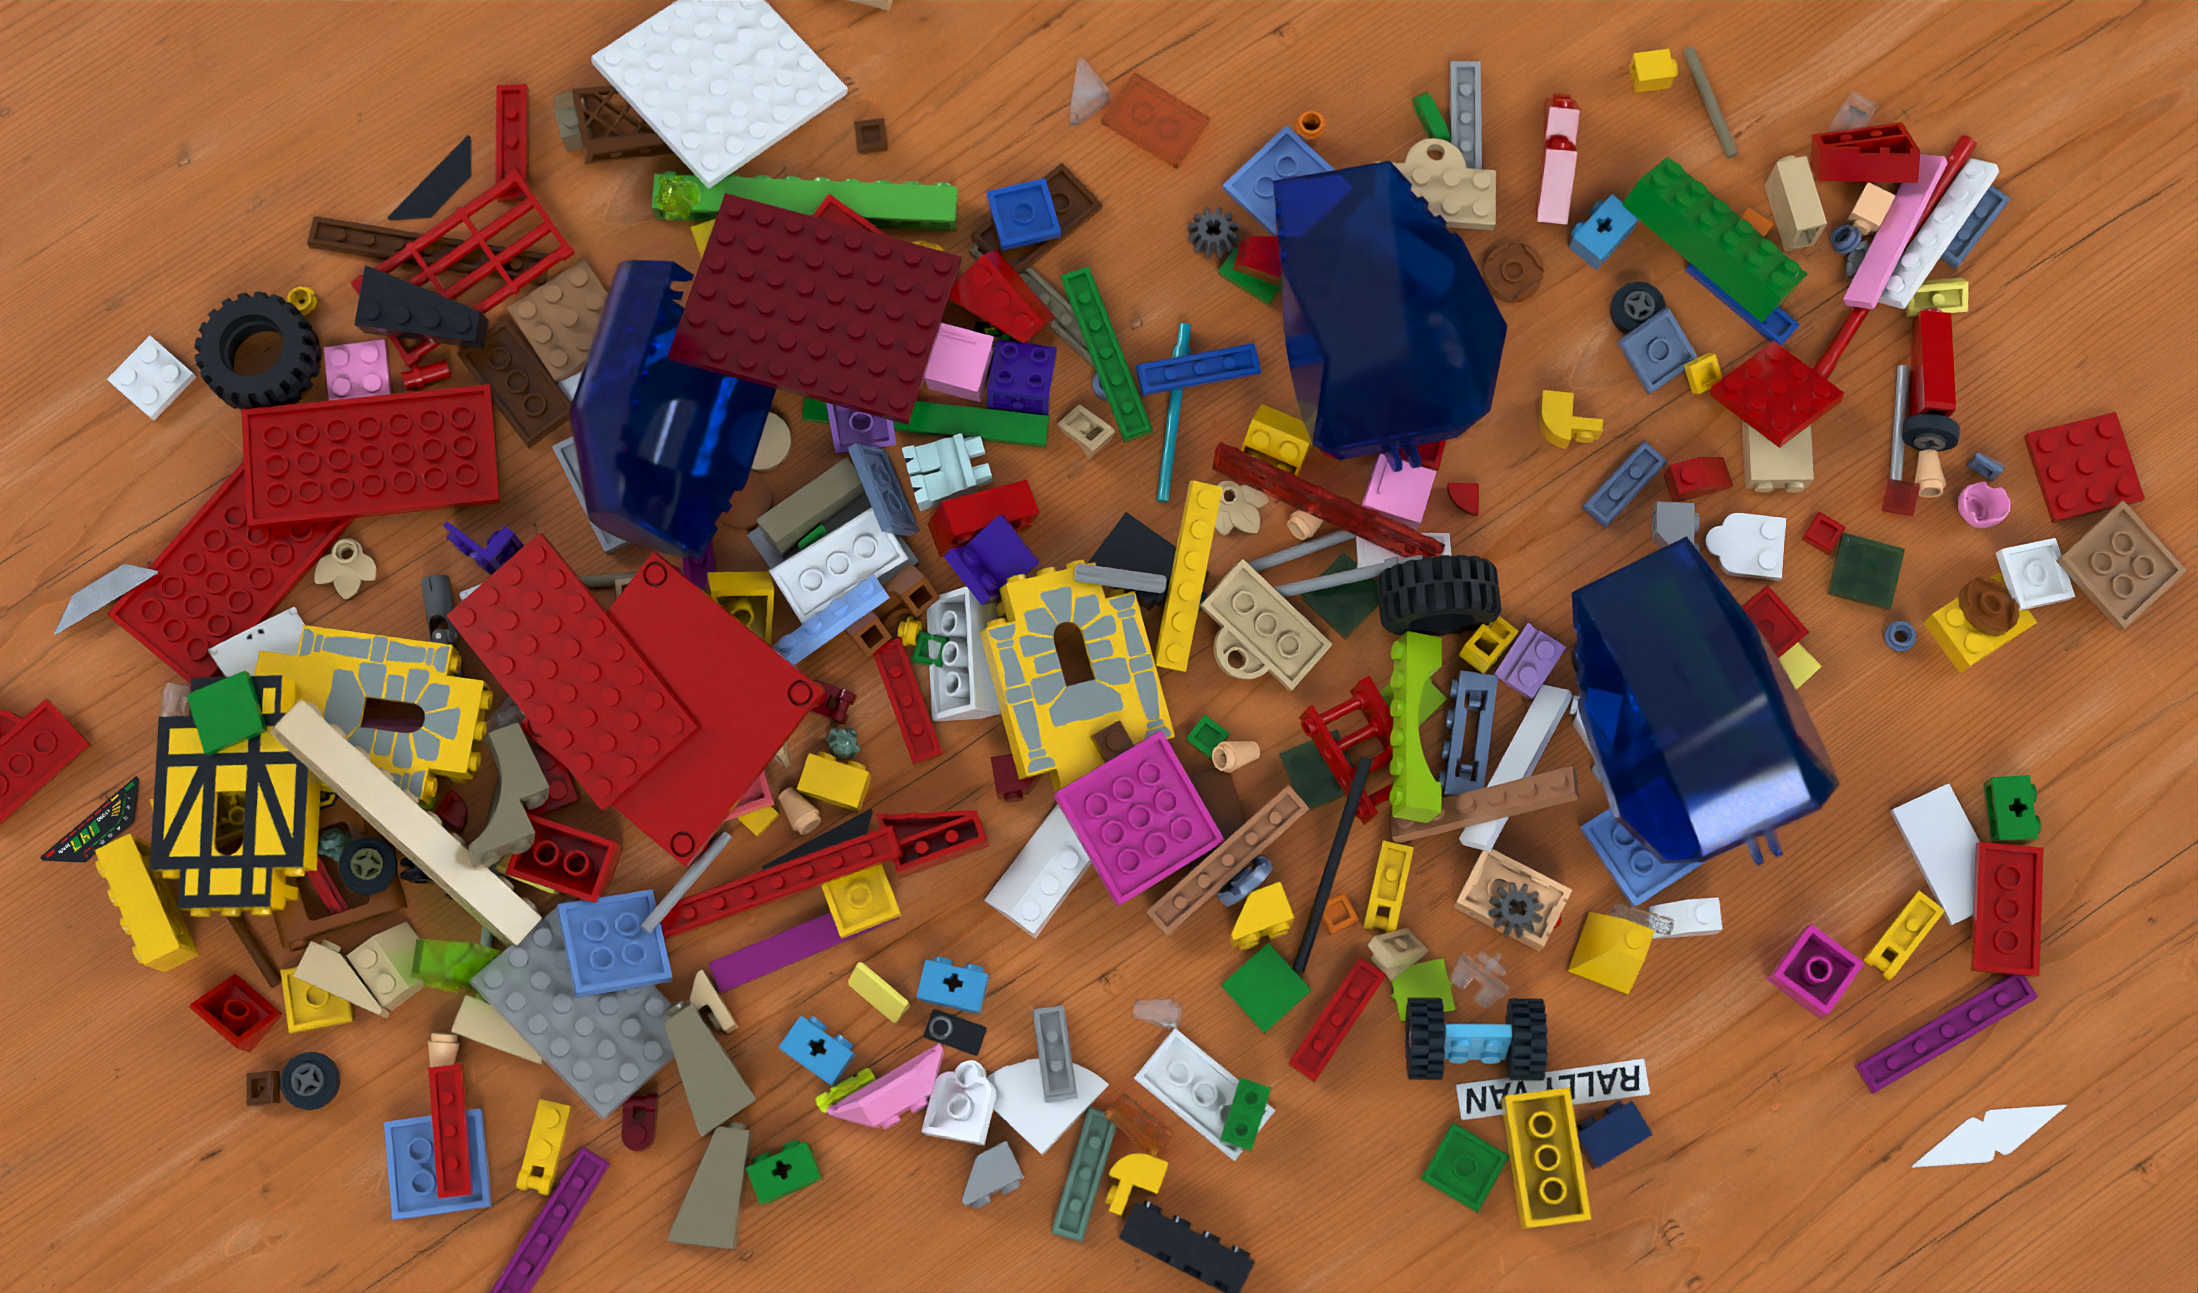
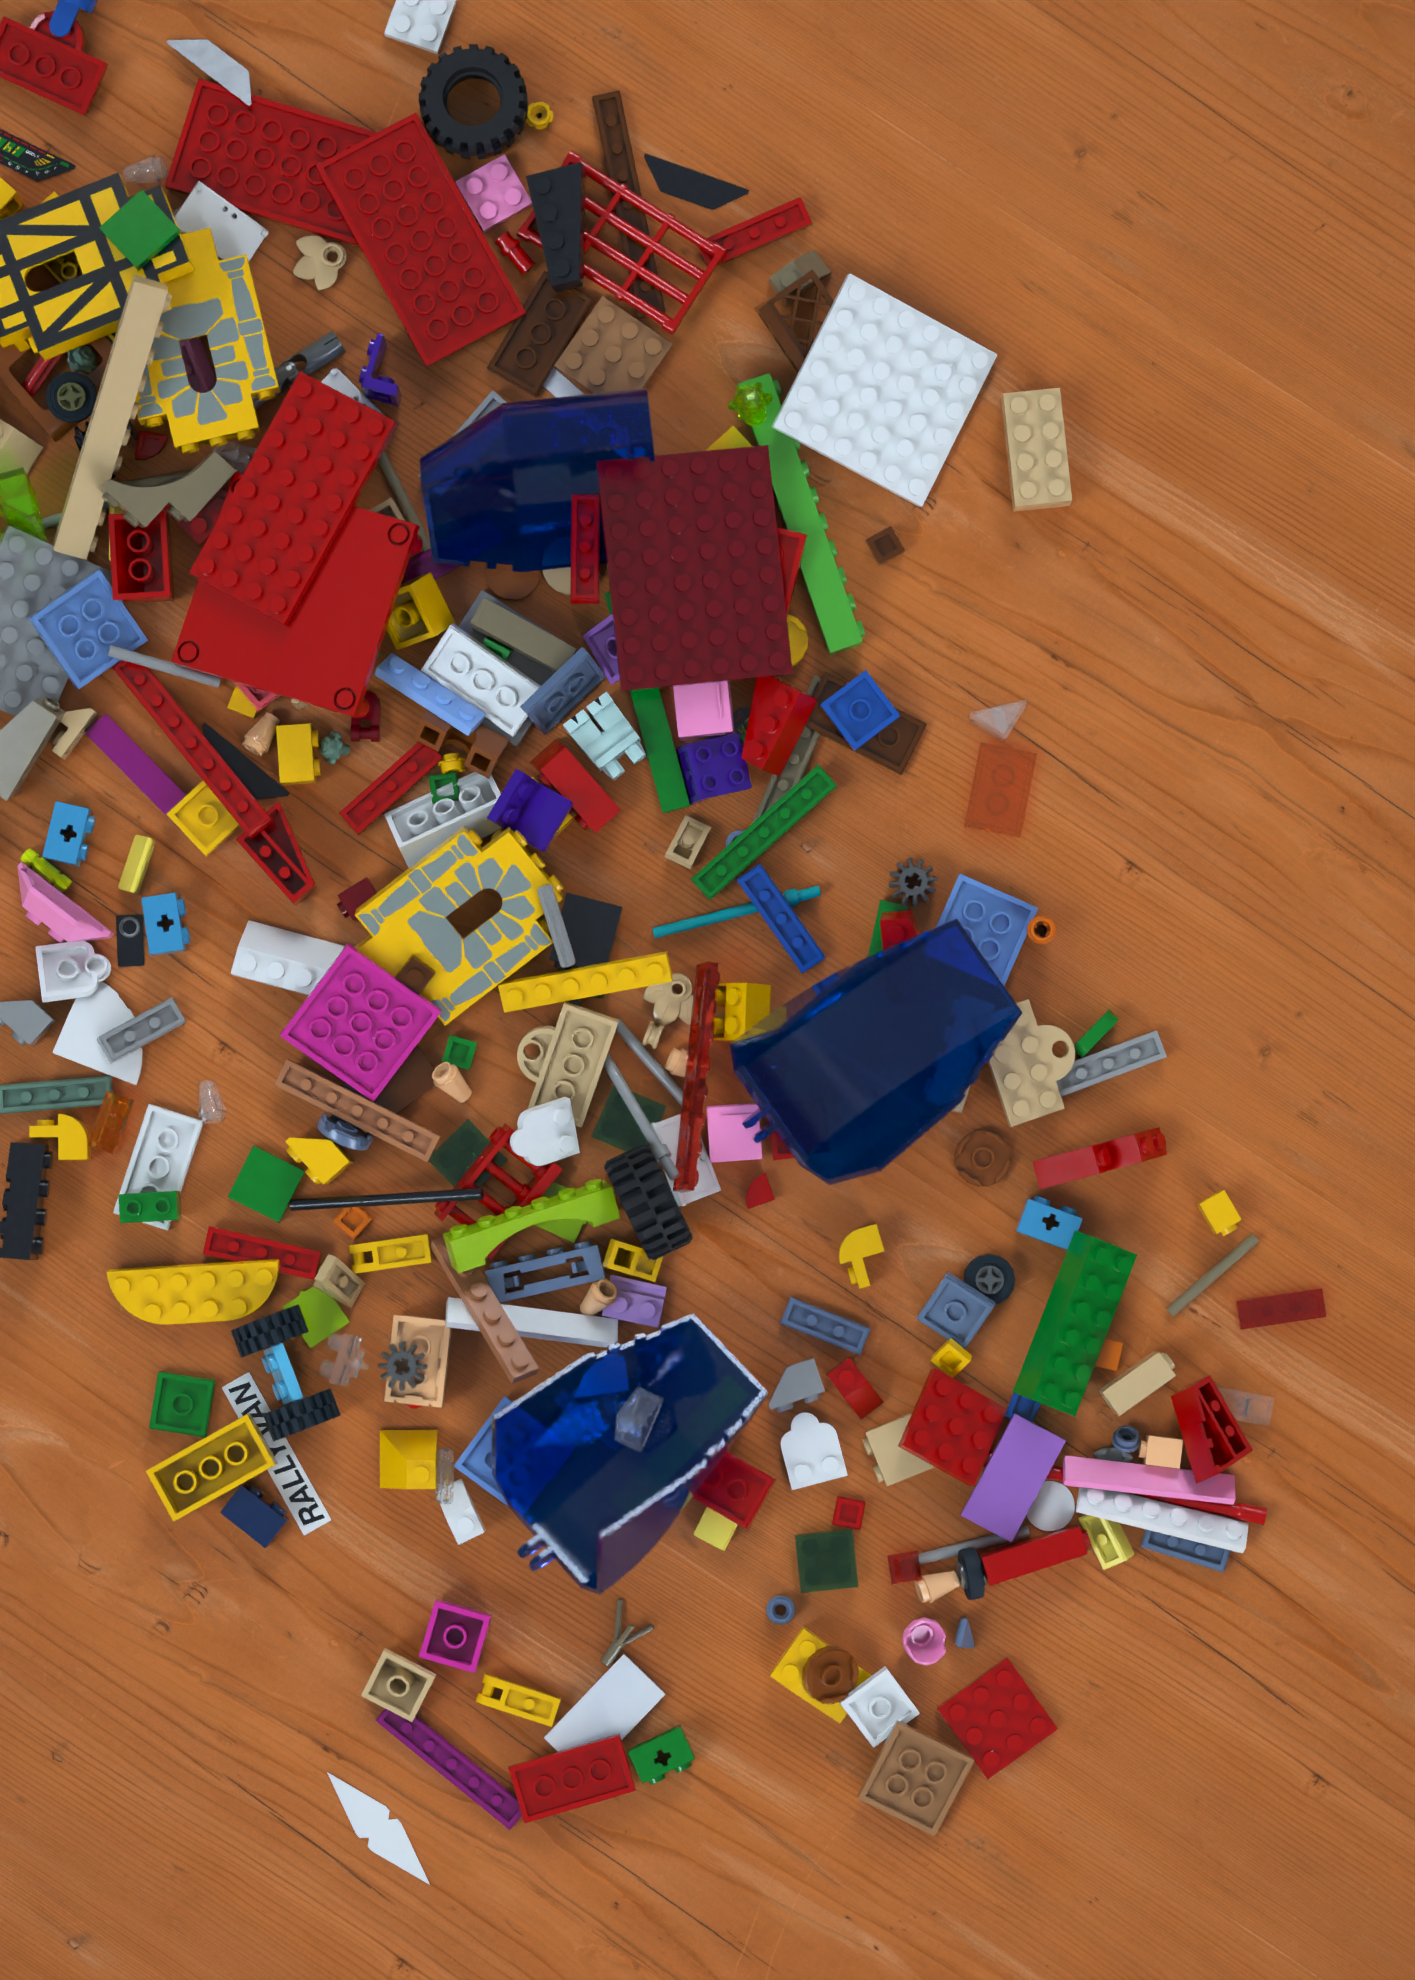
camera: 65 degrees right, 10 degrees up
(751, 410) = (585, 549): none -> red tile
(1266, 538) = (653, 1035): none -> tan bush
(1326, 676) = (546, 1133): none -> white plate
(1350, 1105) = (194, 1290): none -> yellow plate
(1514, 691) = (599, 1296): none -> light nougat cone
(1658, 694) = (637, 1418): none -> clear slope
(1767, 52) = (1281, 1308): none -> clear red tile
(1846, 1051) = (398, 1685): none -> tan slope
(1847, 356) = (1013, 1477): none -> medium lavender tile
(1879, 811) = (624, 1639): none -> dark tan plant
(1884, 339) = (1052, 1507): none -> white sticker

